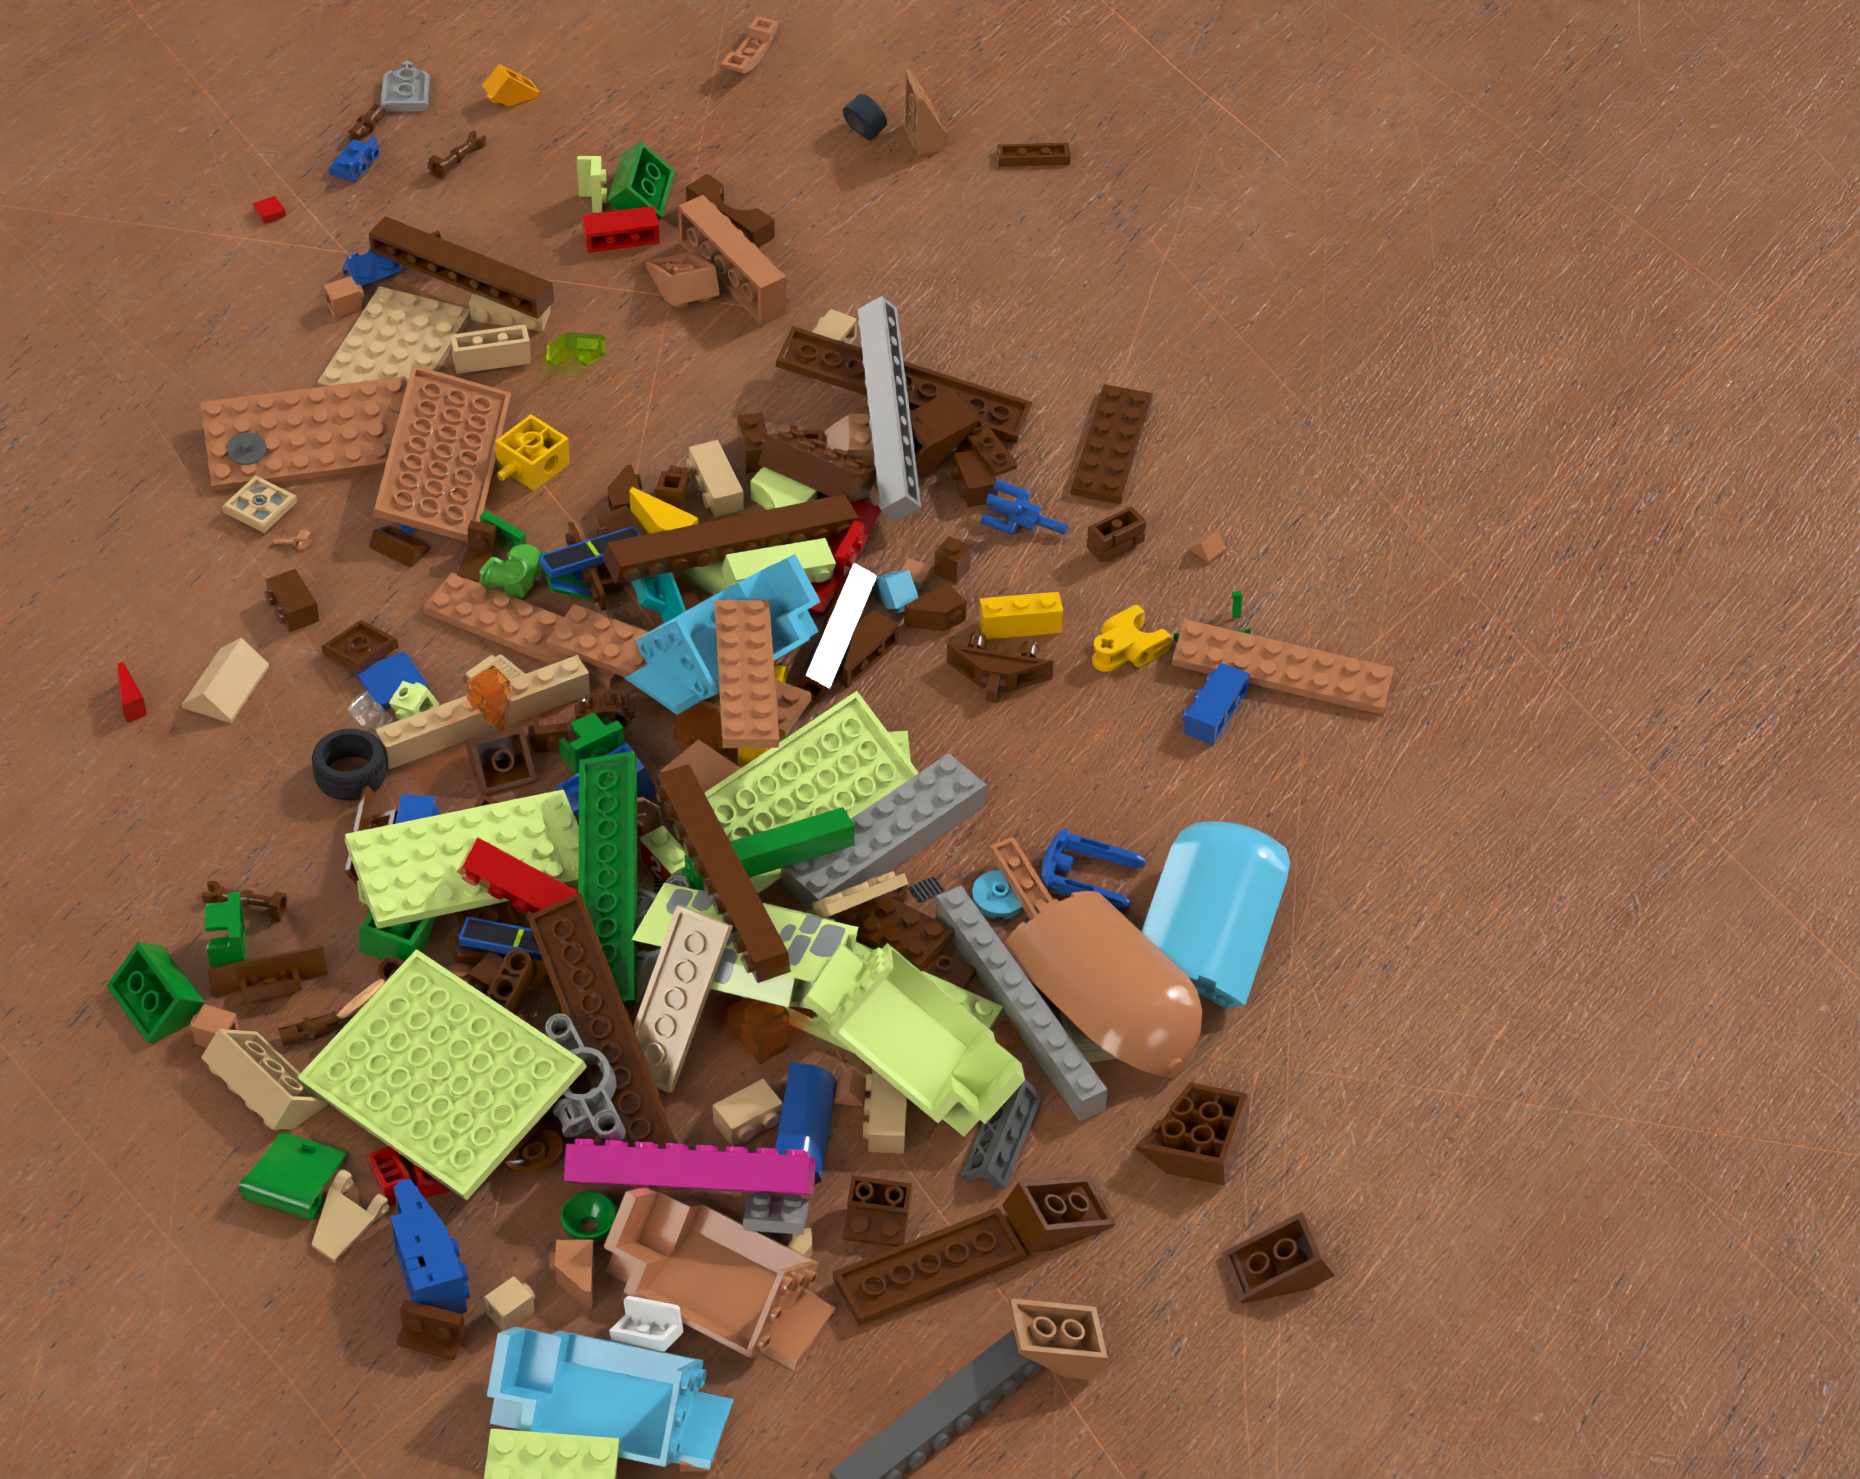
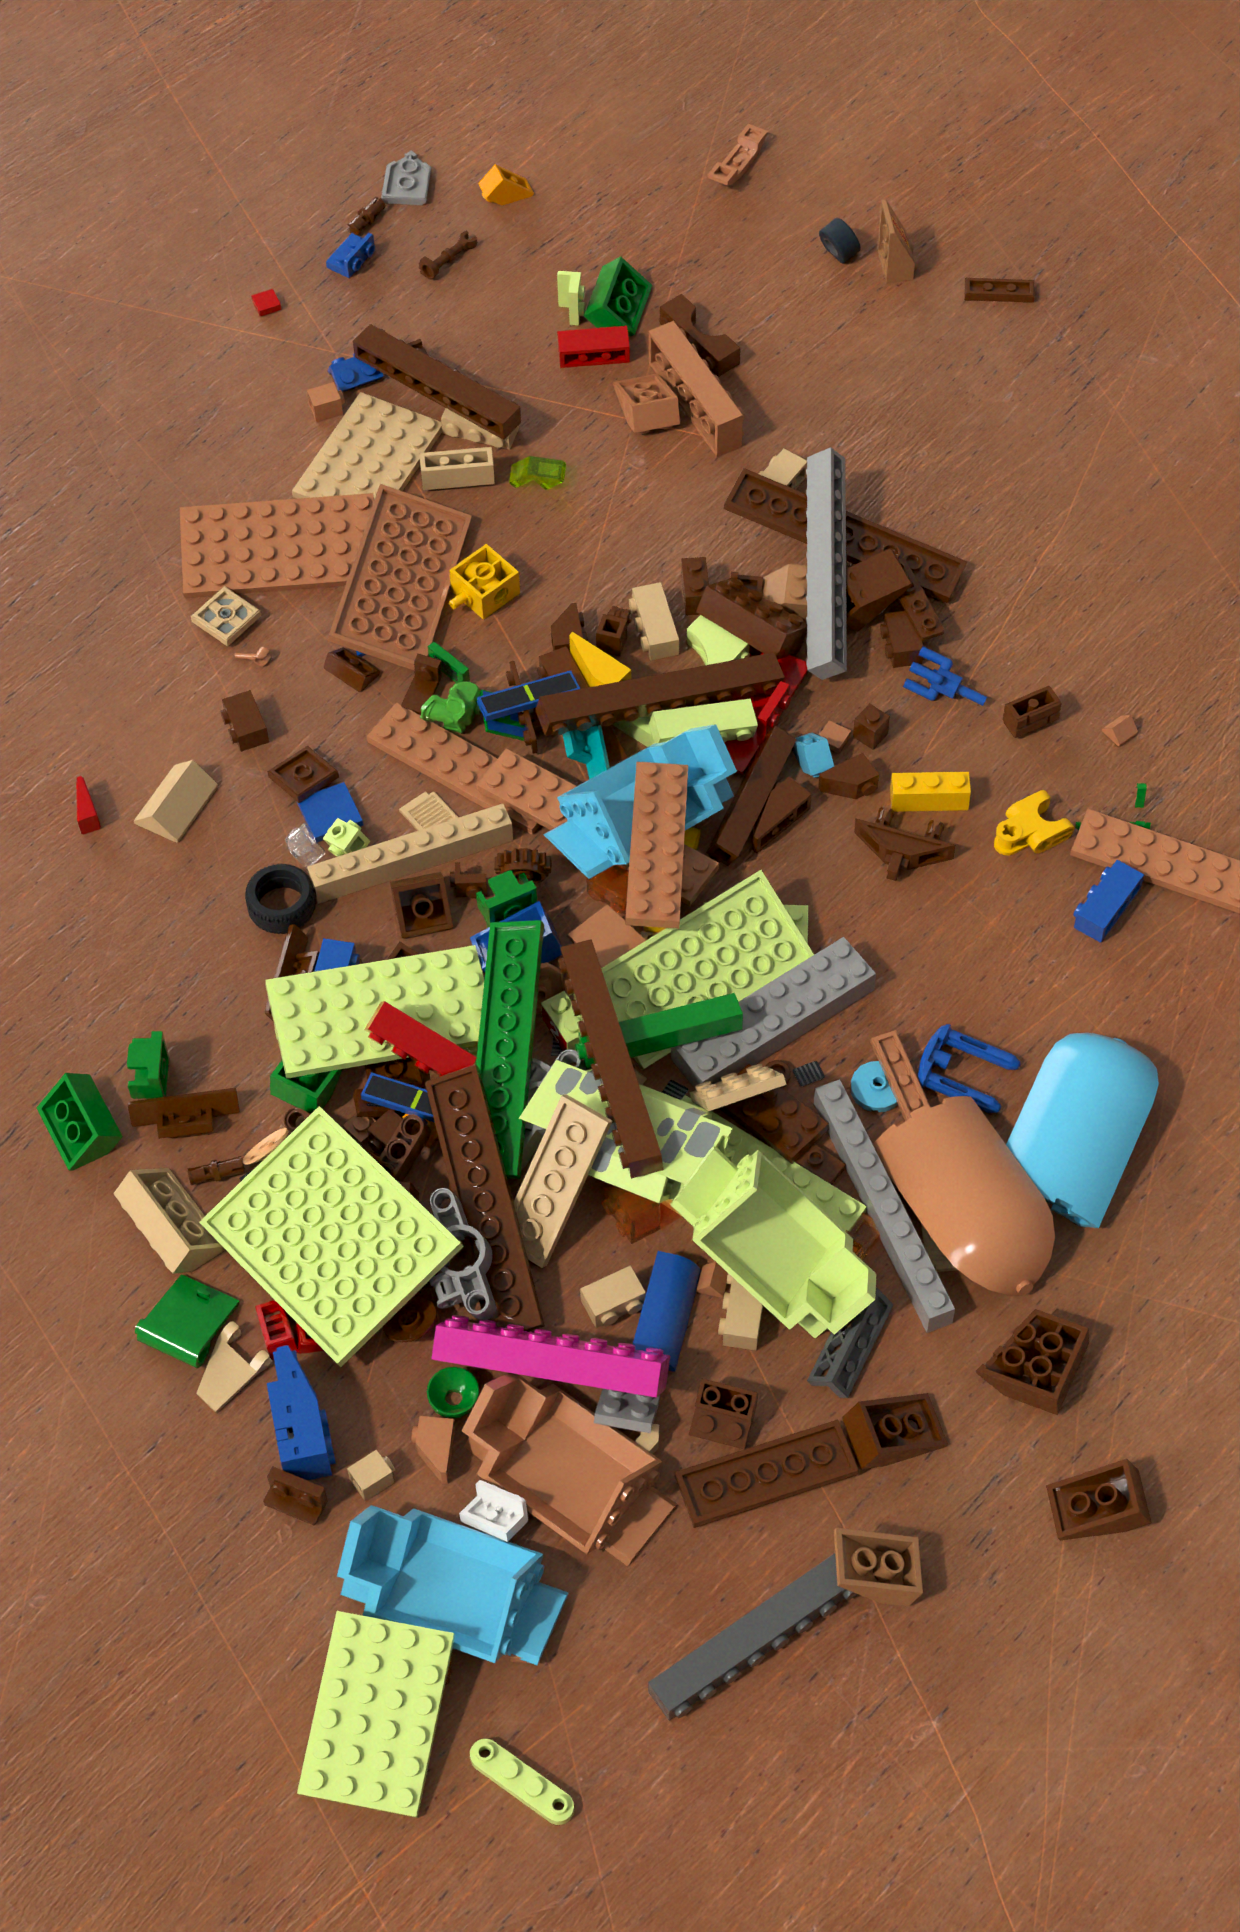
camera: 10 degrees right, 10 degrees up
(209, 1021) = (127, 1158): nougat brick -> none
(246, 448) = (218, 558): dark grey piece -> none
(275, 905) = (198, 1038): reddish brown piece -> none
(491, 695) = (418, 844): clear orange slope -> none
(1112, 444) = (1039, 611): reddish brown plate -> none

